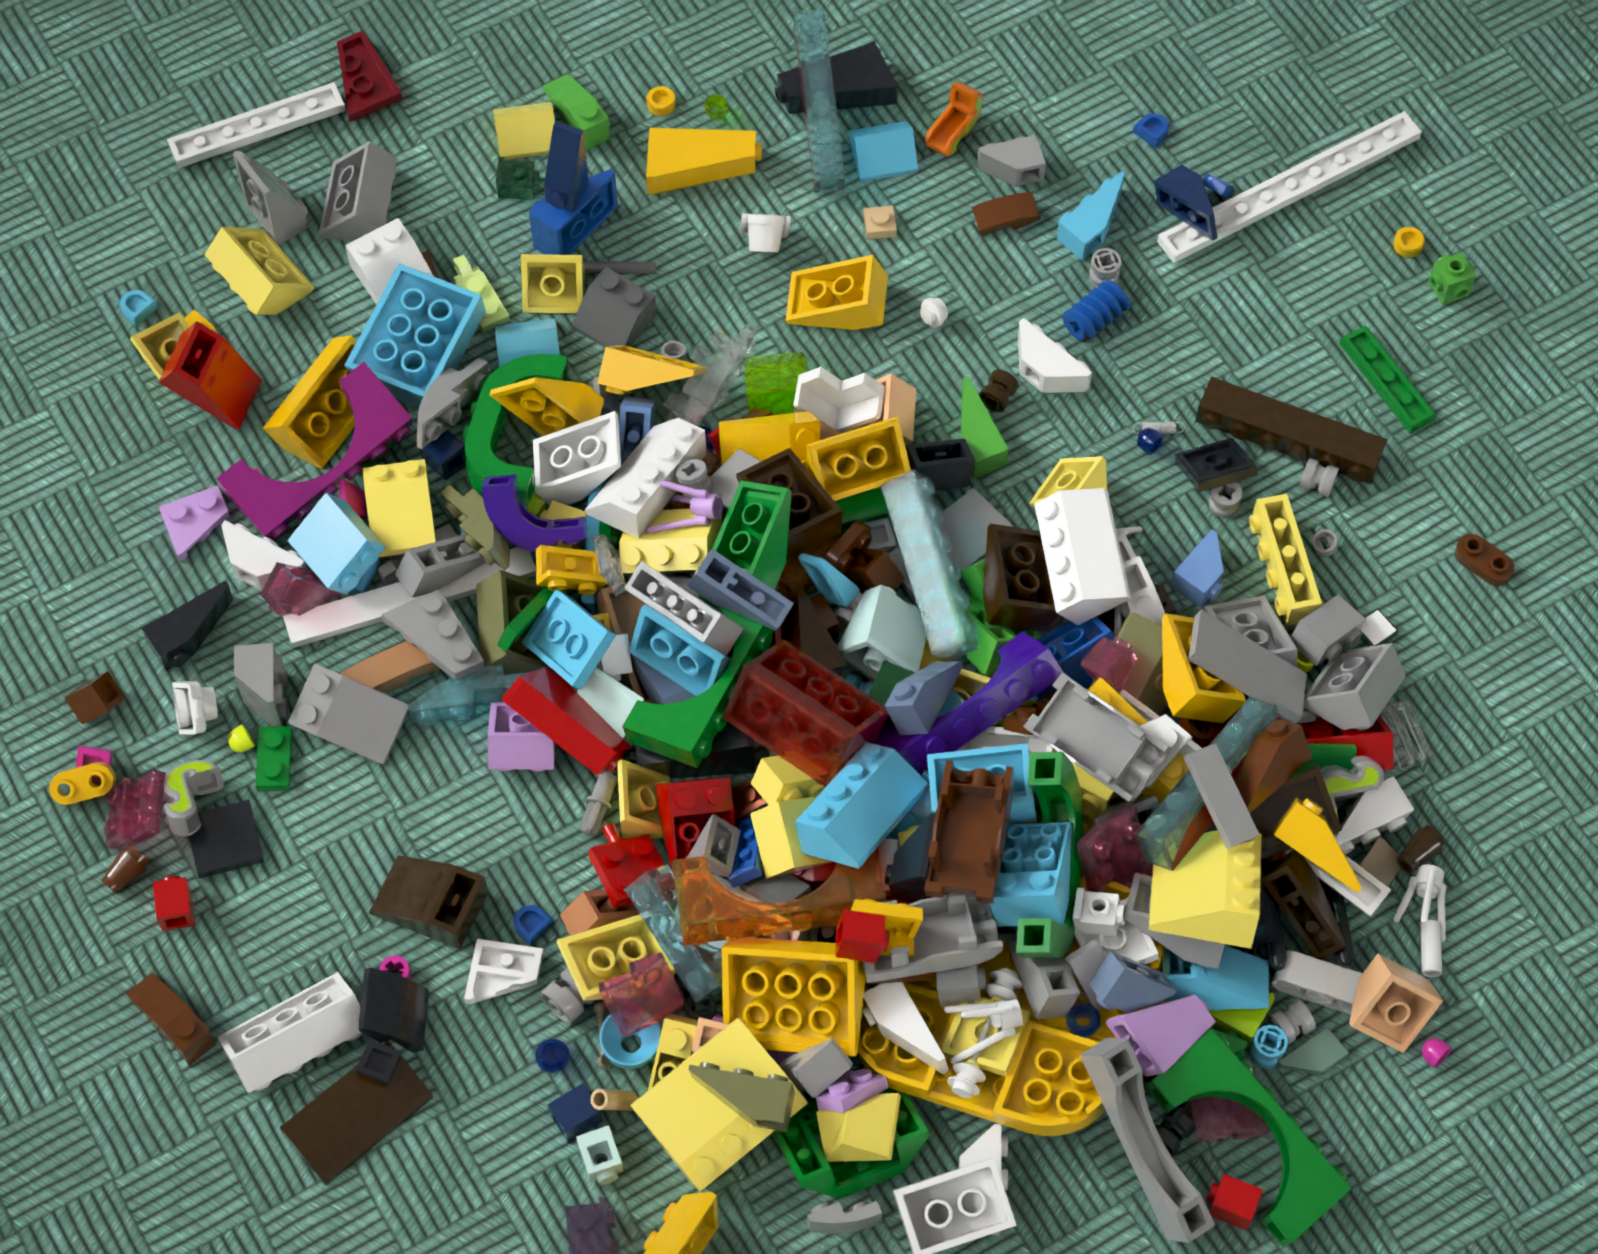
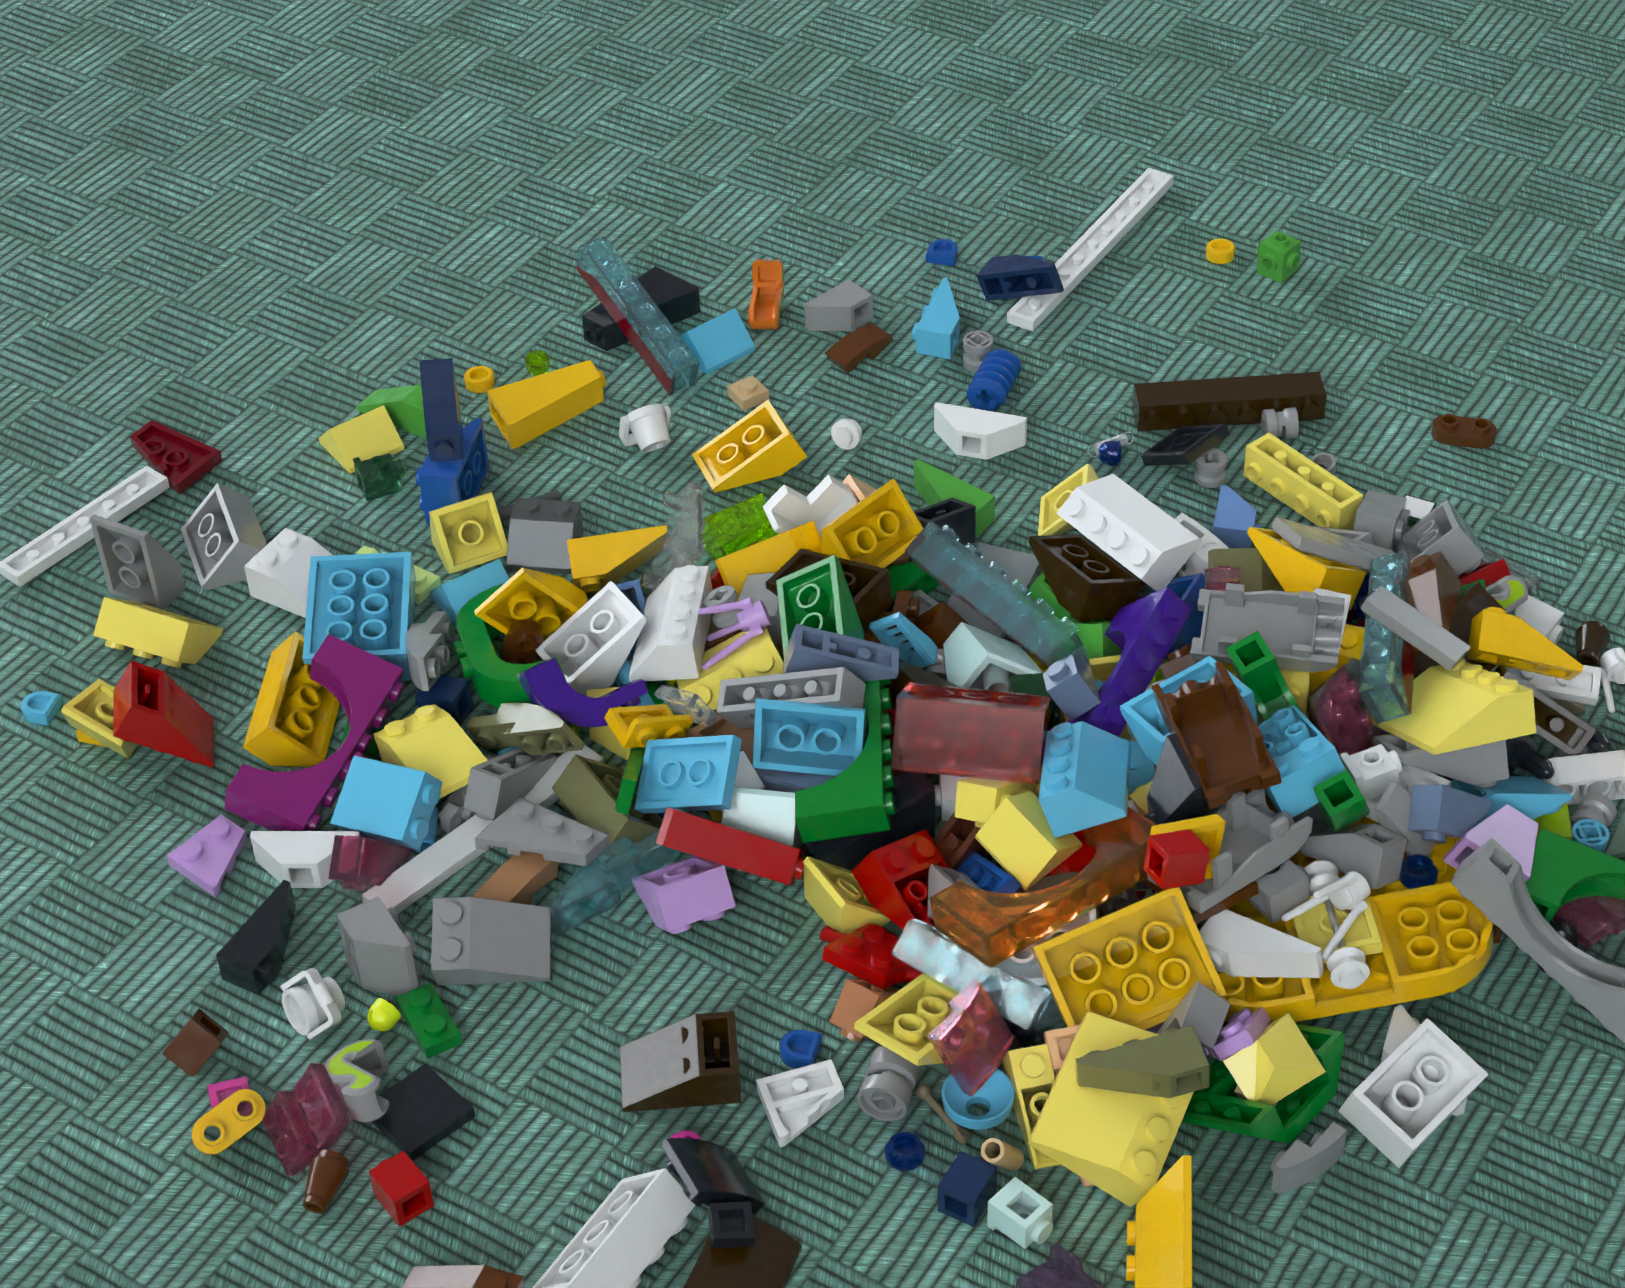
camera: 25 degrees left, 20 degrees down
(524, 430) = (521, 642): none -> reddish brown plate
(598, 804) = (799, 919): light grey axle -> none
(997, 393) = (951, 460): dark brown wheel -> none
(1387, 379) = (1279, 343): green tile -> none

